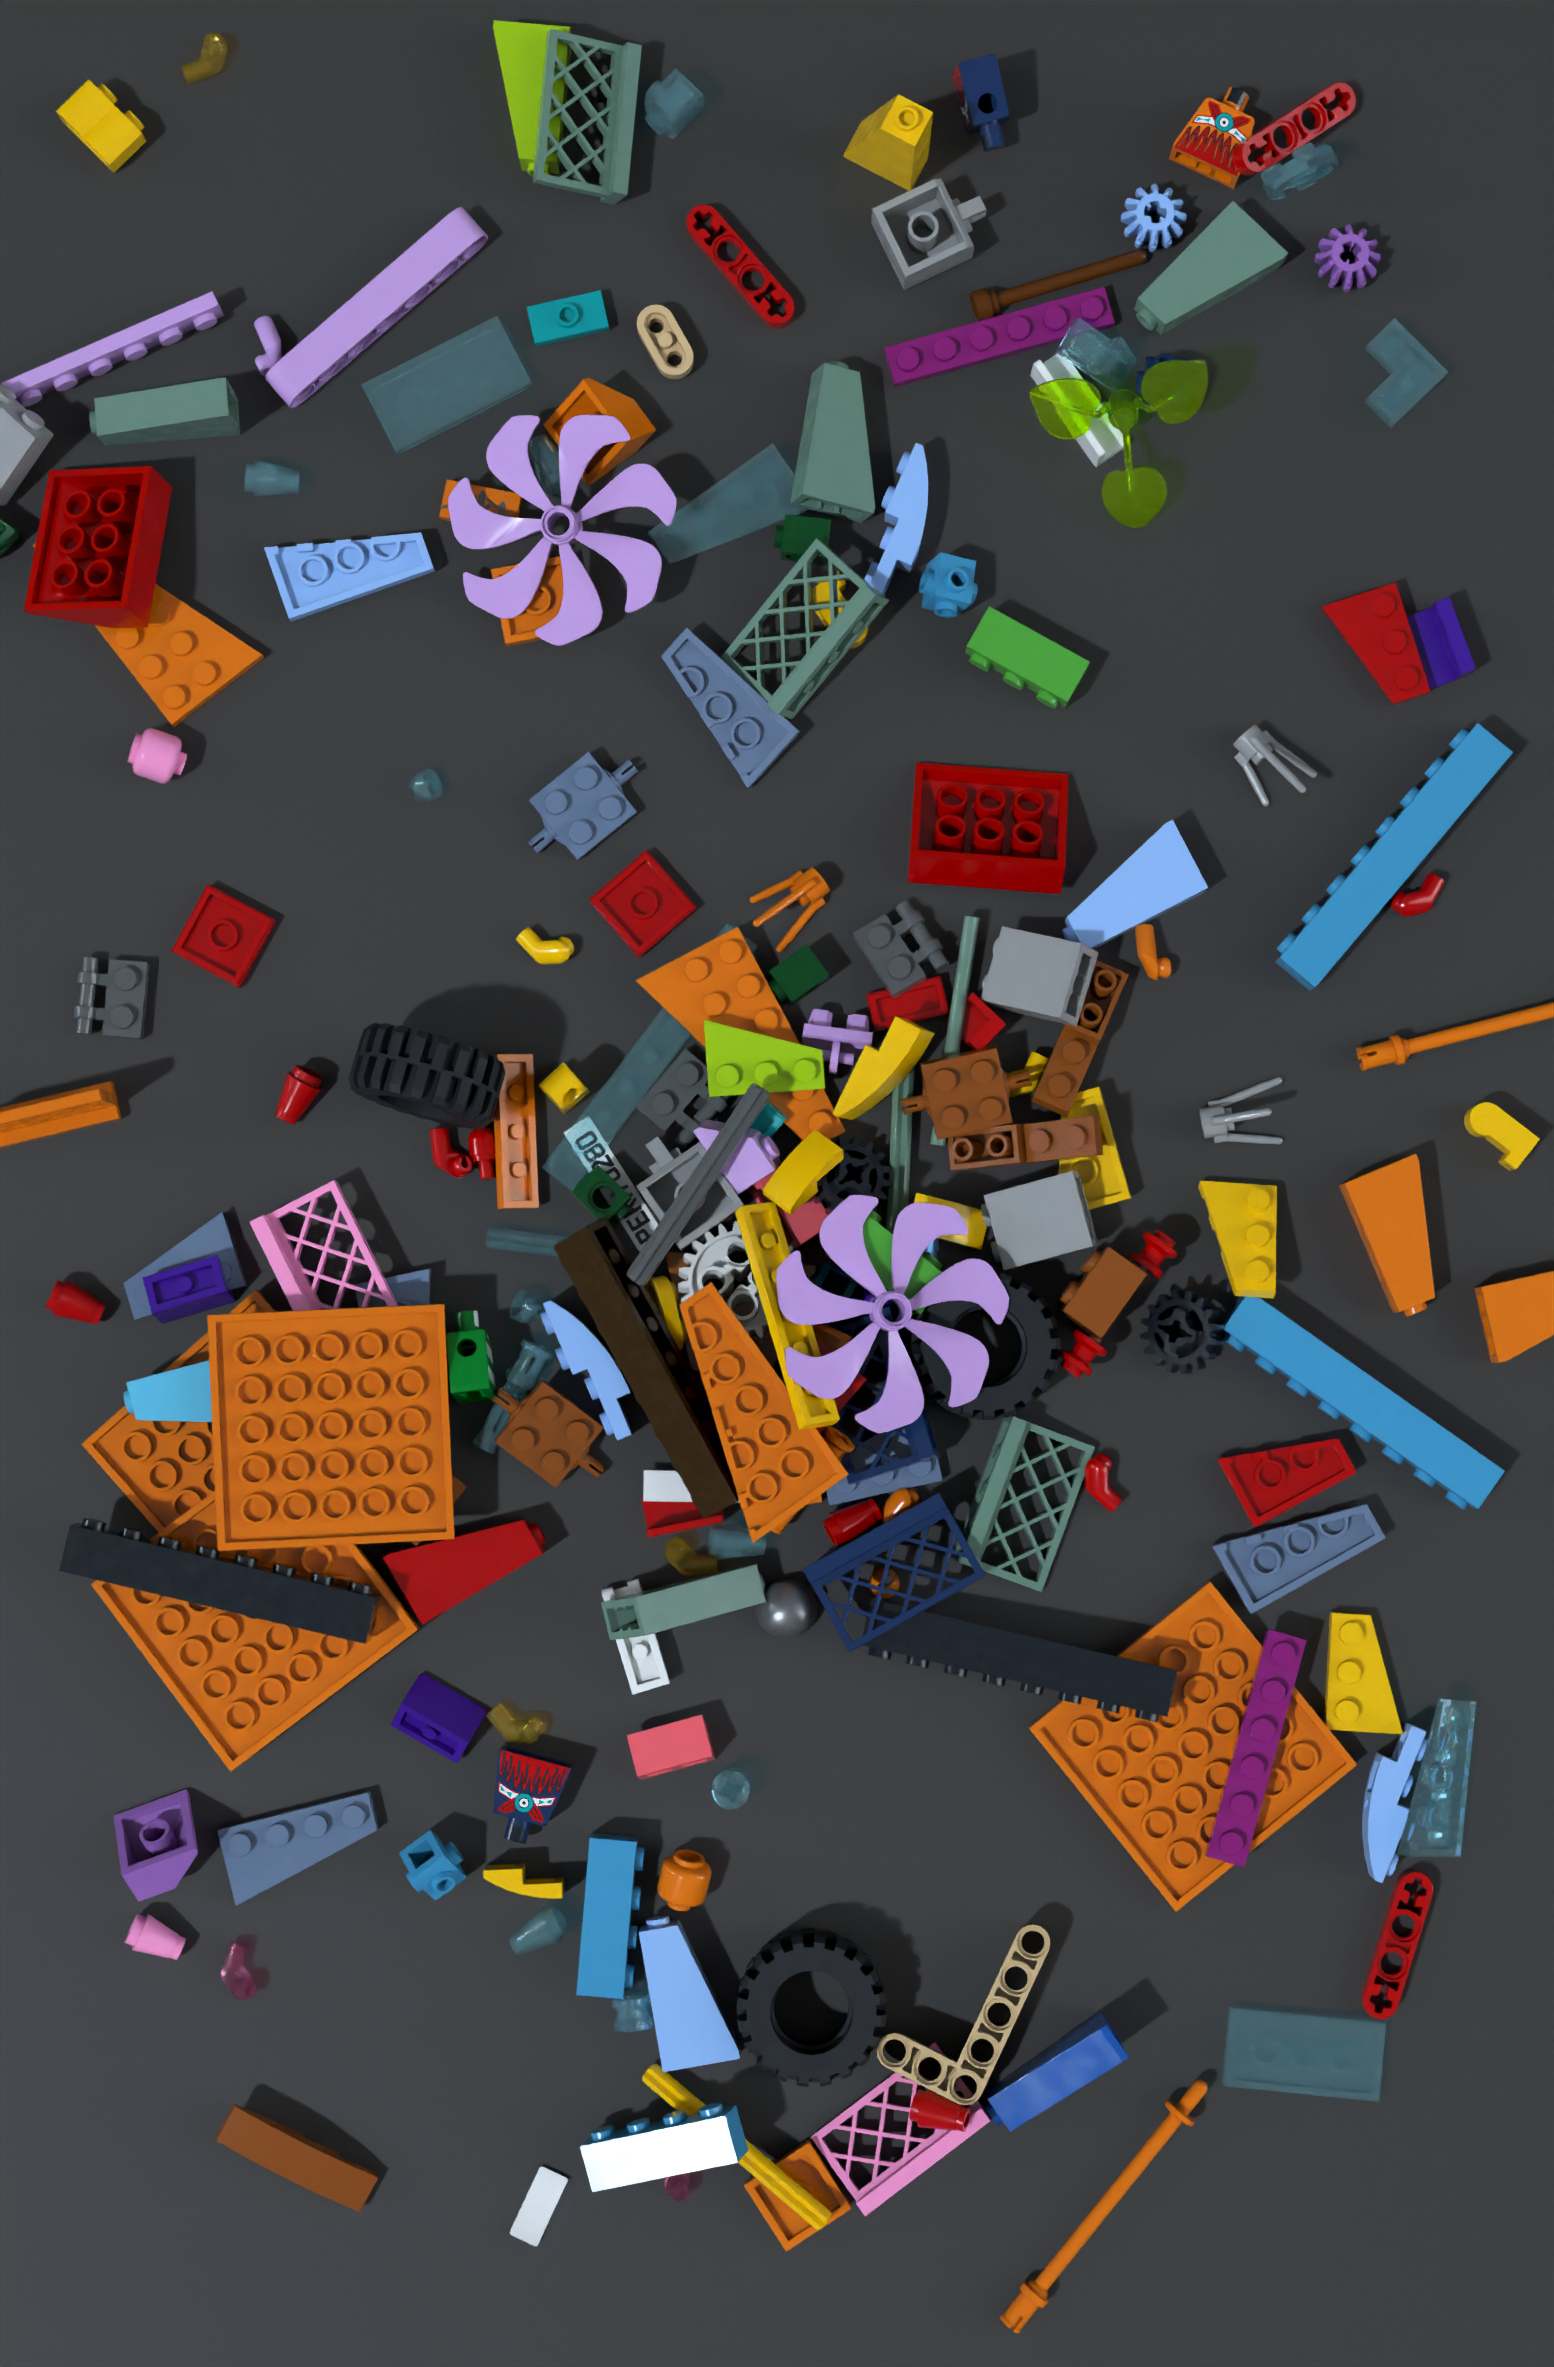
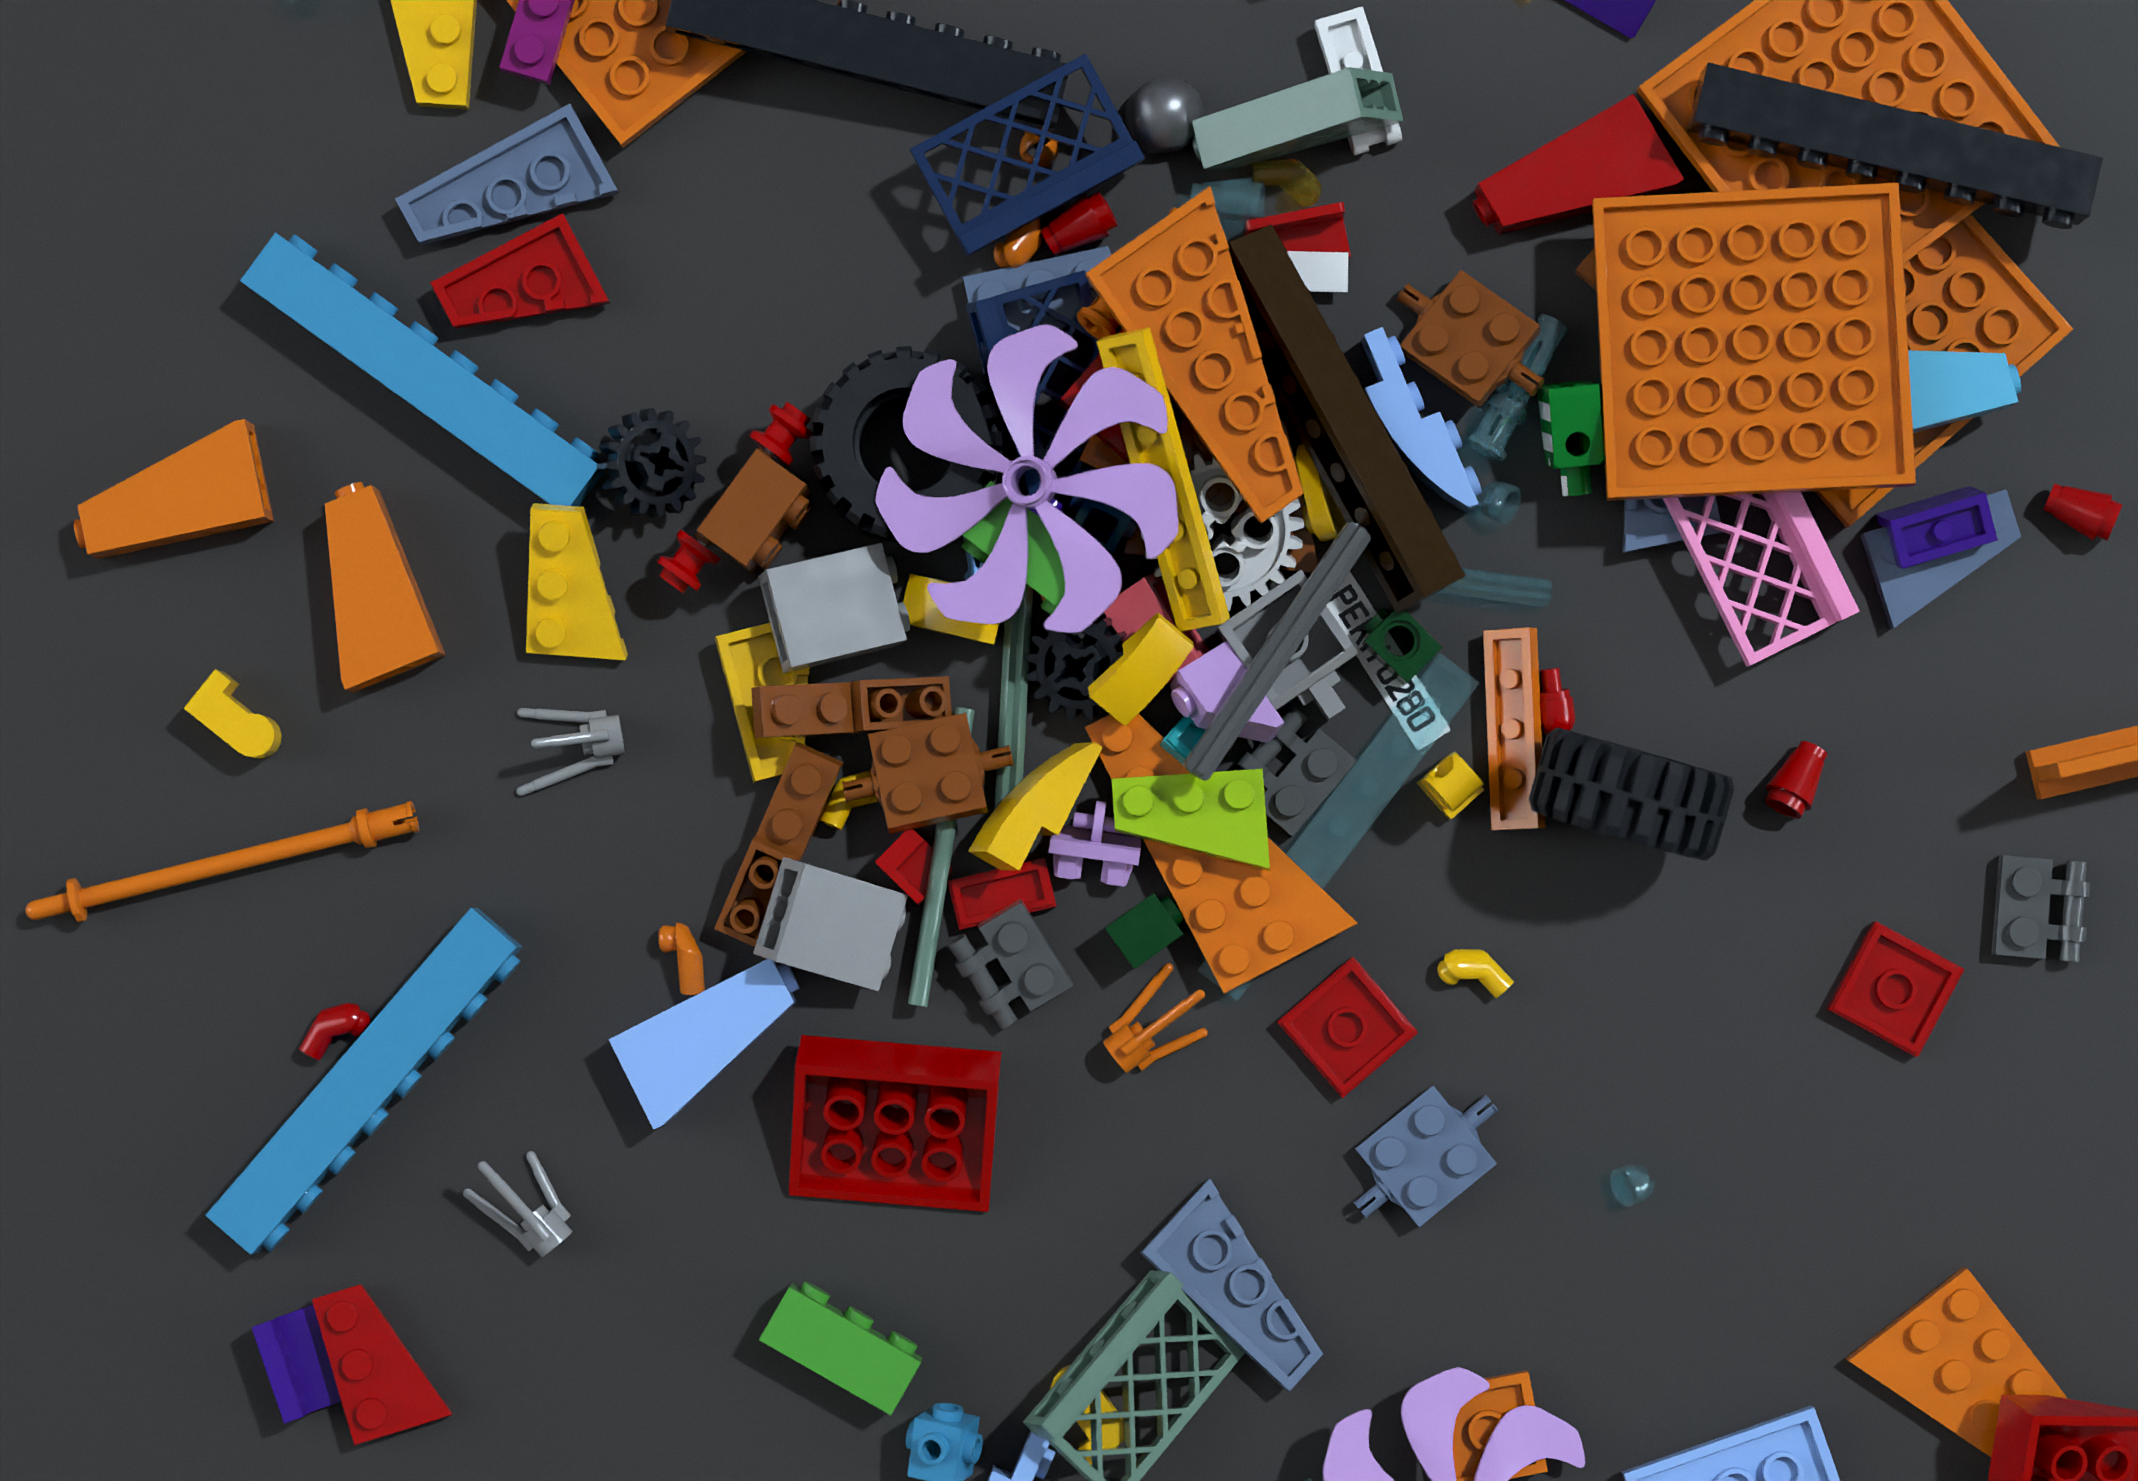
camera: 175 degrees right, 0 degrees up
(157, 755) = (1986, 1226): bright pink head -> none
(447, 1158) = (1603, 697): red arm -> none
(992, 1490) = (894, 273): sand green fence -> none
(1097, 1482) = (763, 273): red arm -> none

